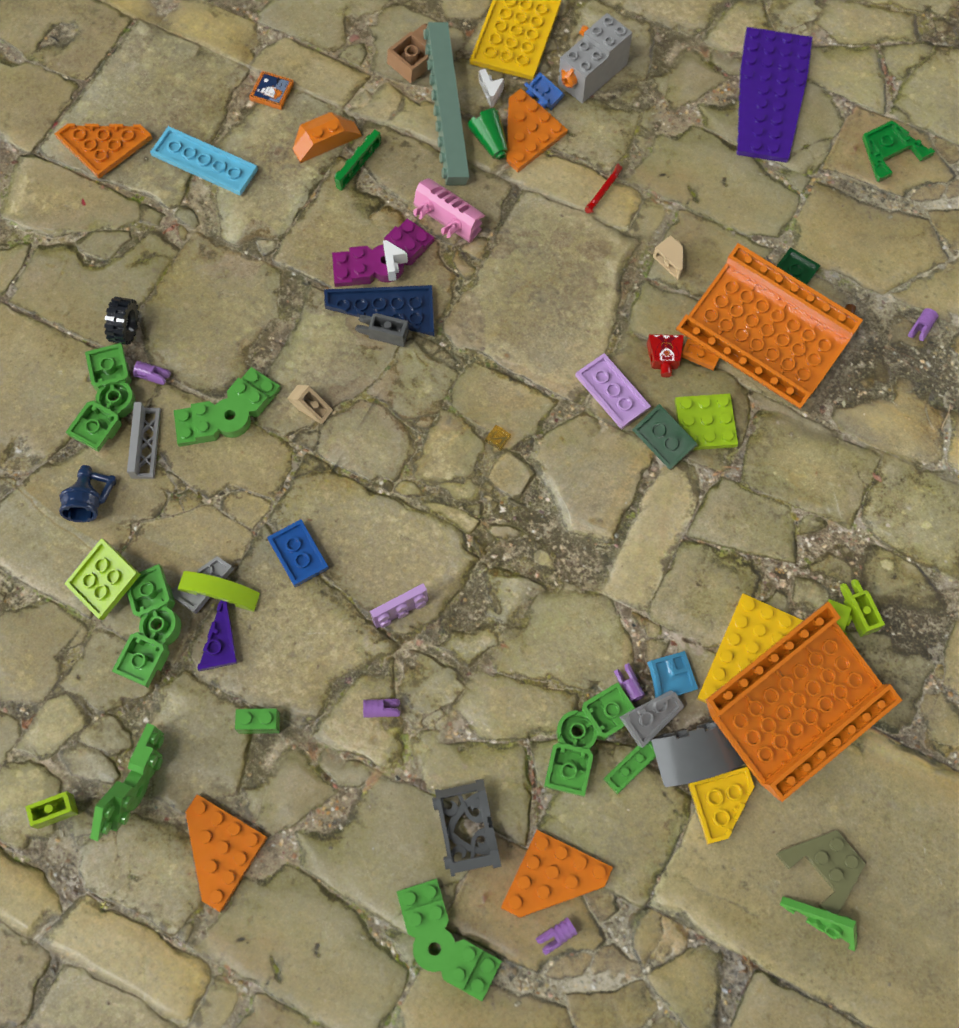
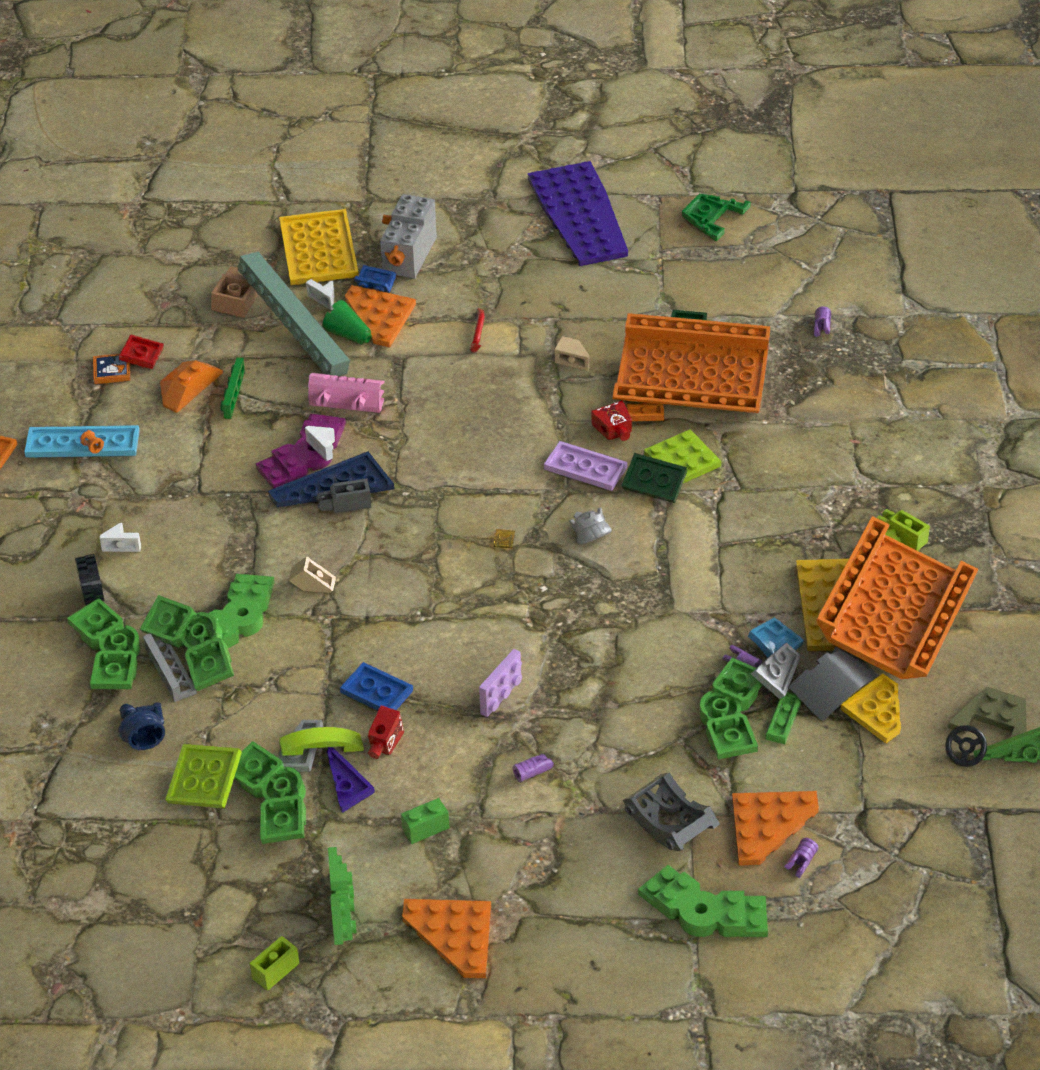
camera: 25 degrees left, 25 degrees down
(150, 372) = (136, 614): medium lavender hinge -> none
(169, 406) = (180, 626): none -> bright green plate
(175, 282) = (118, 541): none -> white slope
(206, 172) = (92, 441): none -> orange bush
(273, 609) = (385, 732): none -> red torso
(303, 83) = (141, 351): none -> red tile
(577, 464) = (590, 526): none -> light grey hair
(778, 891) = (973, 742): none -> black piece

